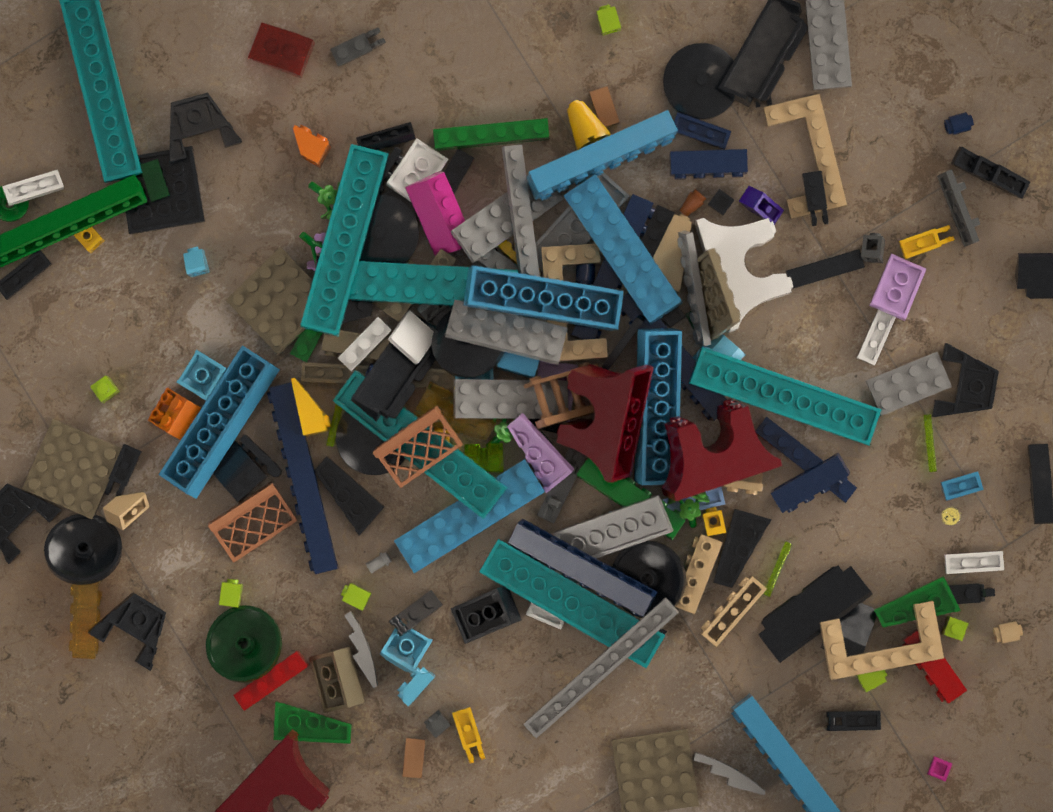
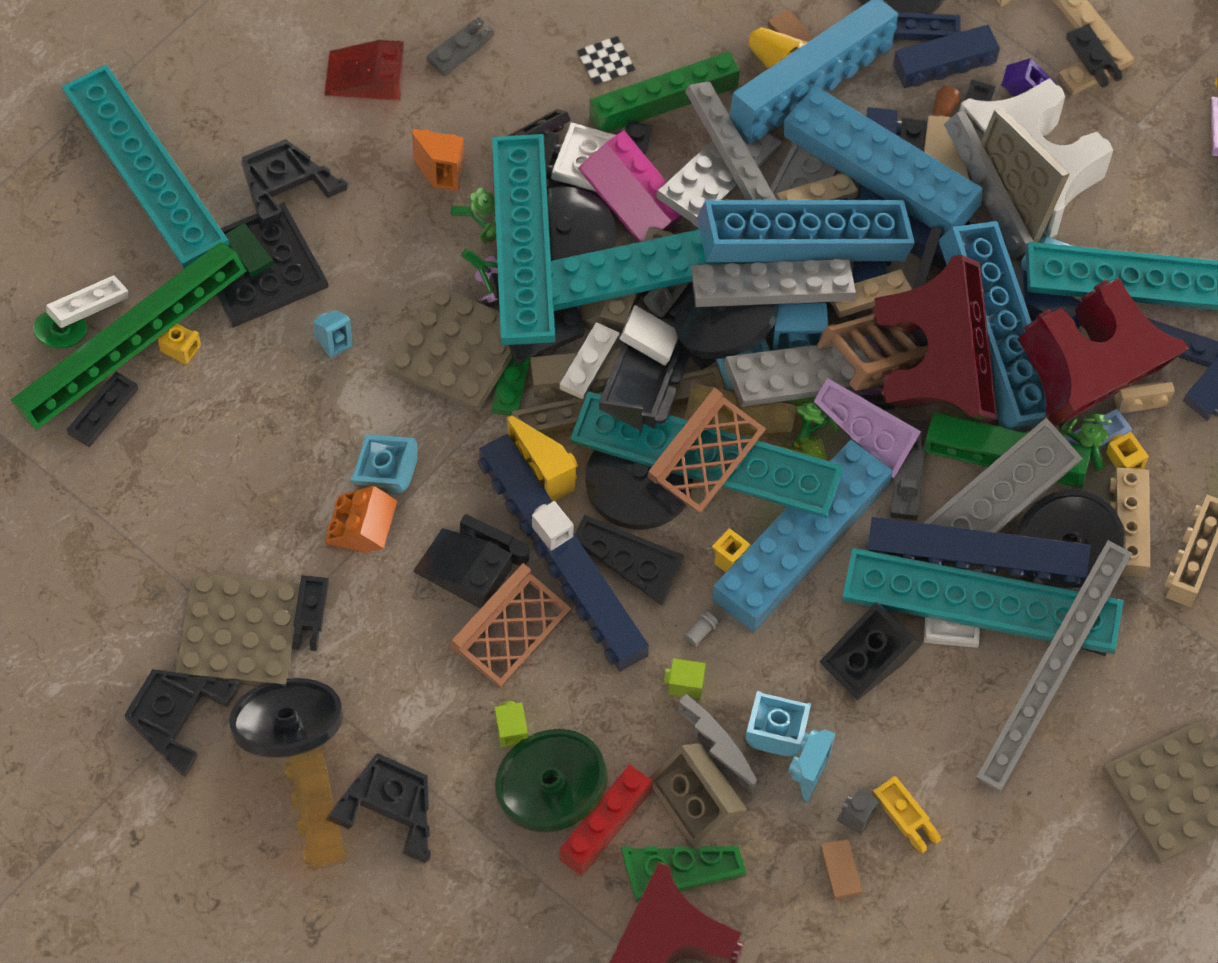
camera: 25 degrees left, 25 degrees down
(104, 389) = (255, 514): lime brick -> none
(125, 509) = (329, 654): tan slope -> none
(219, 422) = (425, 508): dark azure brick -> none
(298, 465) = (552, 525): none -> white brick
(335, 420) = (582, 496): clear neon green bar -> none
(415, 515) = (729, 549): none -> yellow brick
(416, 612) = (775, 675): black plate -> none
(460, 88) = (606, 60): none -> sticker
(740, 542) = (1170, 475): black wing -> none
(826, 268) = (1145, 132): black tile -> none
(870, 241) = (1188, 95): dark grey brick -> none

